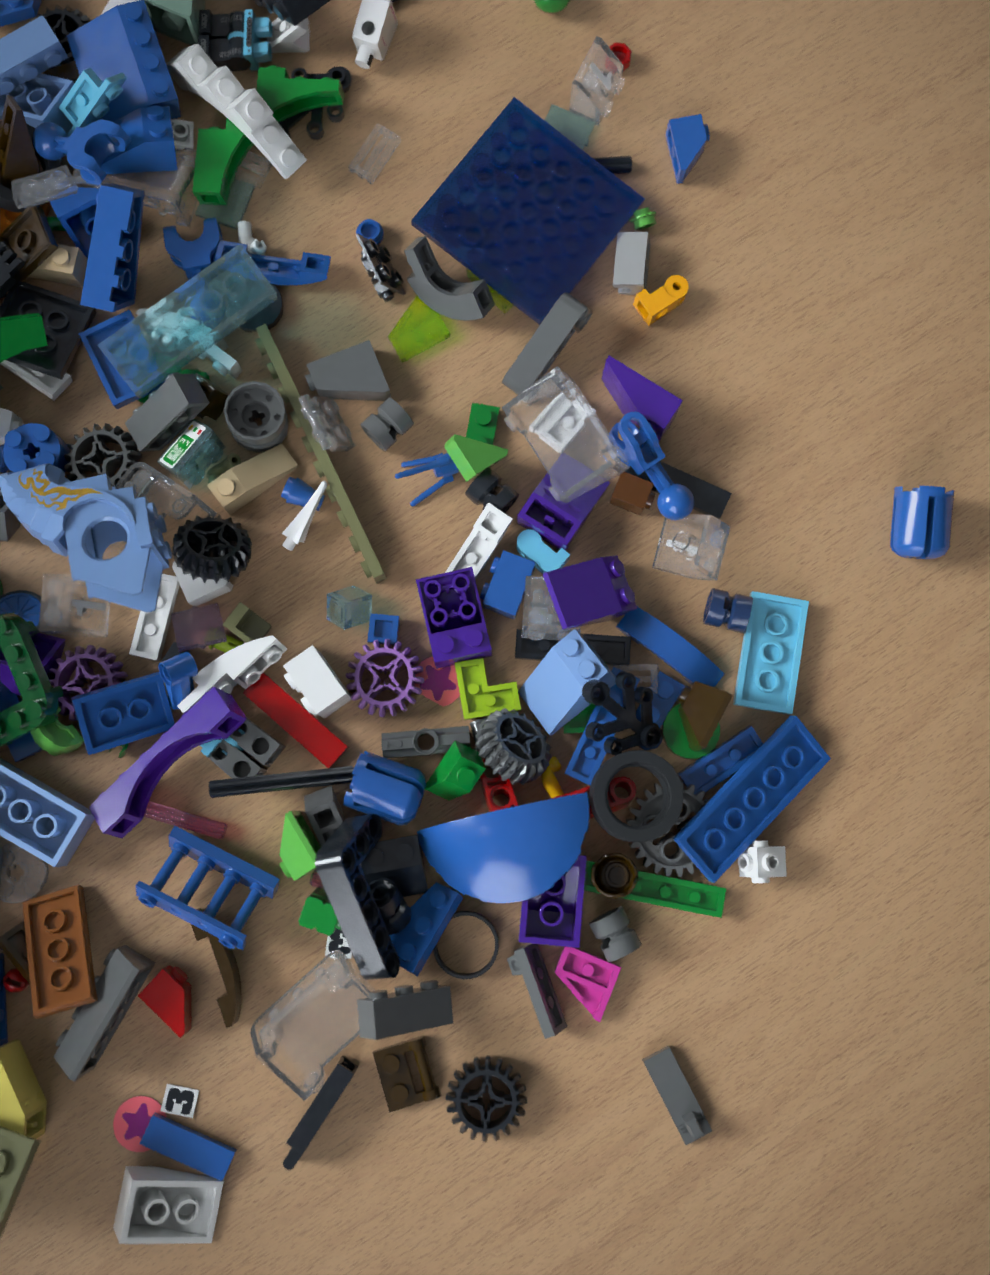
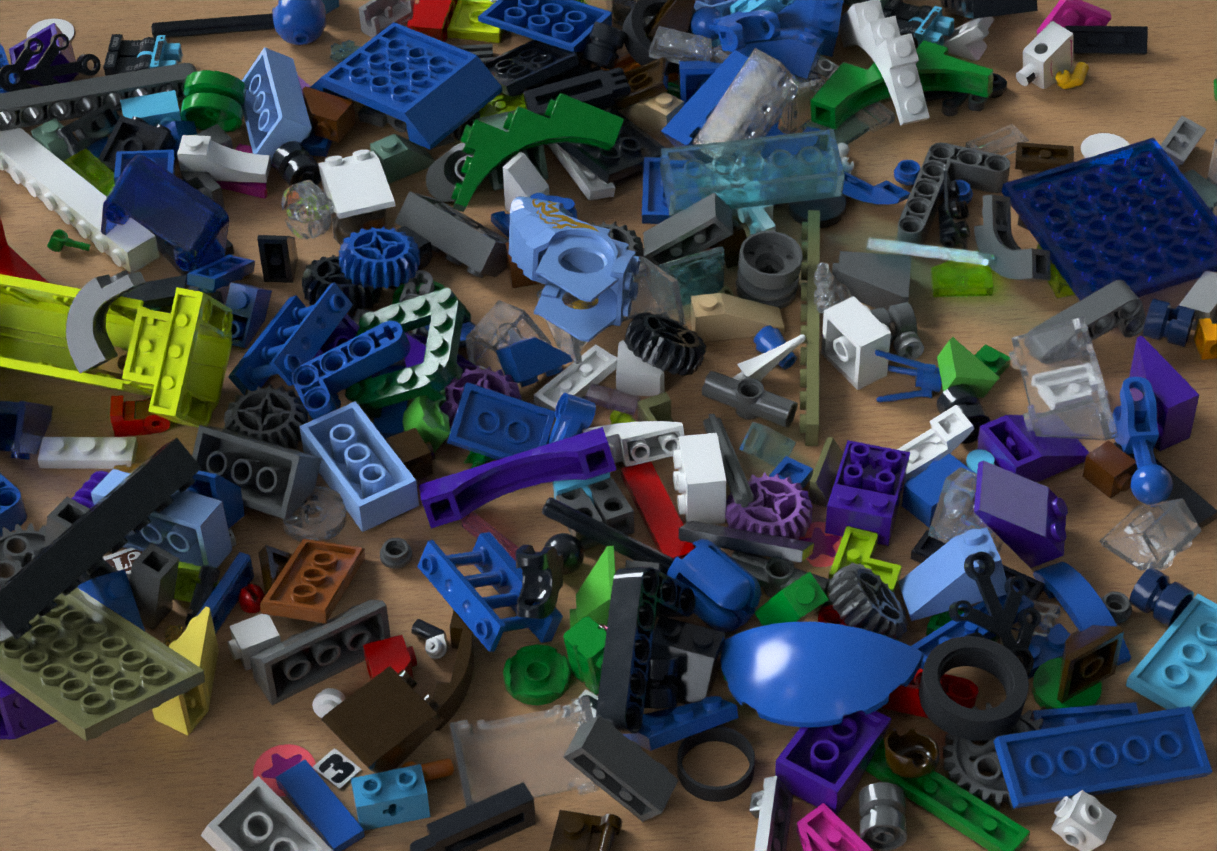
camera: 30 degrees right, 35 degrees down
(44, 1032) = (252, 637): none -> white brick
(63, 776) = (413, 452): none -> dark brown brick
(99, 878) = (396, 553): none -> dark grey plate
(105, 624) = (530, 358): none -> blue slope
(141, 1053) = (327, 700): none -> white plate
(147, 245) = (751, 101): none -> clear brick
(186, 940) = (435, 638): none -> arm
(198, 1073) = (384, 720): none -> dark brown slope
(239, 1118) = (390, 797): none -> dark azure brick
(246, 859) = (545, 572): none -> black piece
(246, 1079) = (434, 769): none -> orange arm
(280, 933) = (537, 675): none -> green tile
(292, 563) = (749, 398): none -> dark grey piece
(315, 229) = (907, 172): none -> blue plate
(329, 650) = (733, 471): none -> dark grey axle
(347, 242) = (978, 168): none -> dark grey beam
(370, 463) = (851, 340): none -> white brick
(386, 330) = (932, 252): none -> clear light blue tile
(386, 729) = (747, 541): none -> black tile
(403, 41) = (1072, 80): none -> yellow arm
(411, 437) = (908, 345): none -> light grey bush
(412, 612) = (825, 473): none -> olive slope
(424, 153) = (1042, 156): none -> dark brown plate
(469, 112) = (1101, 143): none -> white sticker
(533, 82) = (1182, 140): none -> light grey hinge
(602, 308) = (1169, 322): none -> dark blue wheel
(701, 629) = (1118, 606): none -> dark grey plate

